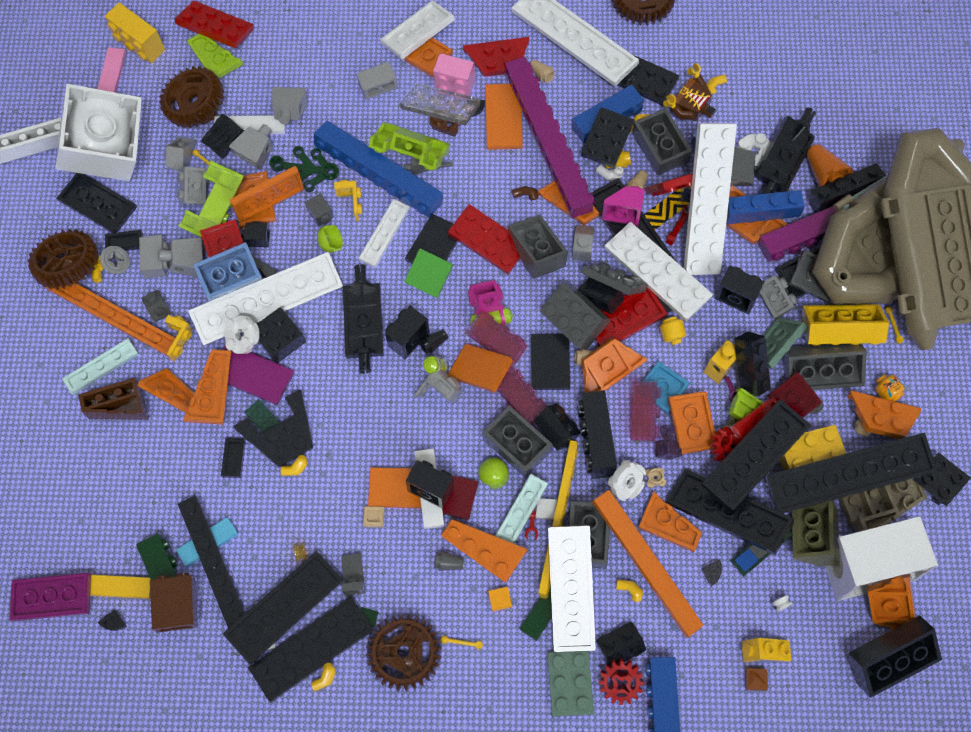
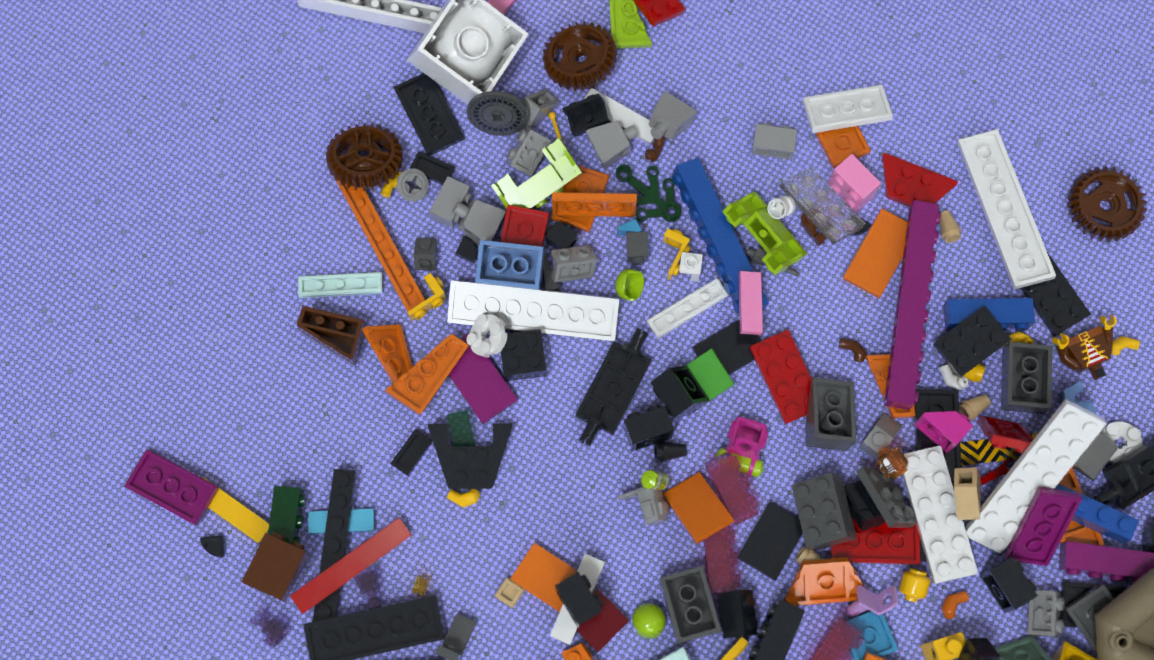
camera: 30 degrees right, 5 degrees up
(143, 161) = (497, 113): none -> piece
(187, 285) = (467, 250): none -> black tile
(201, 655) = (272, 629): none -> clear purple piece
(234, 569) = (350, 565): none -> red tile
(258, 575) = (368, 584): none -> clear purple piece
(277, 247) = (573, 263): none -> light grey bracket
(291, 138) = (657, 148): none -> reddish brown arm
(305, 195) = (630, 226): none -> dark azure slope
(368, 198) = (691, 264): none -> white bracket
(410, 121) = (781, 207): none -> white wheel
(414, 291) = (679, 391): none -> black brick
(429, 199) = (750, 303): none -> bright pink tile
(602, 251) = (892, 462): none -> clear orange head
(646, 360) = (870, 601): none -> lavender bracket
(670, 241) = (967, 493): none -> tan slope
(707, 328) = (951, 602): none -> orange arm
(738, 231) = (1043, 526): none -> magenta tile

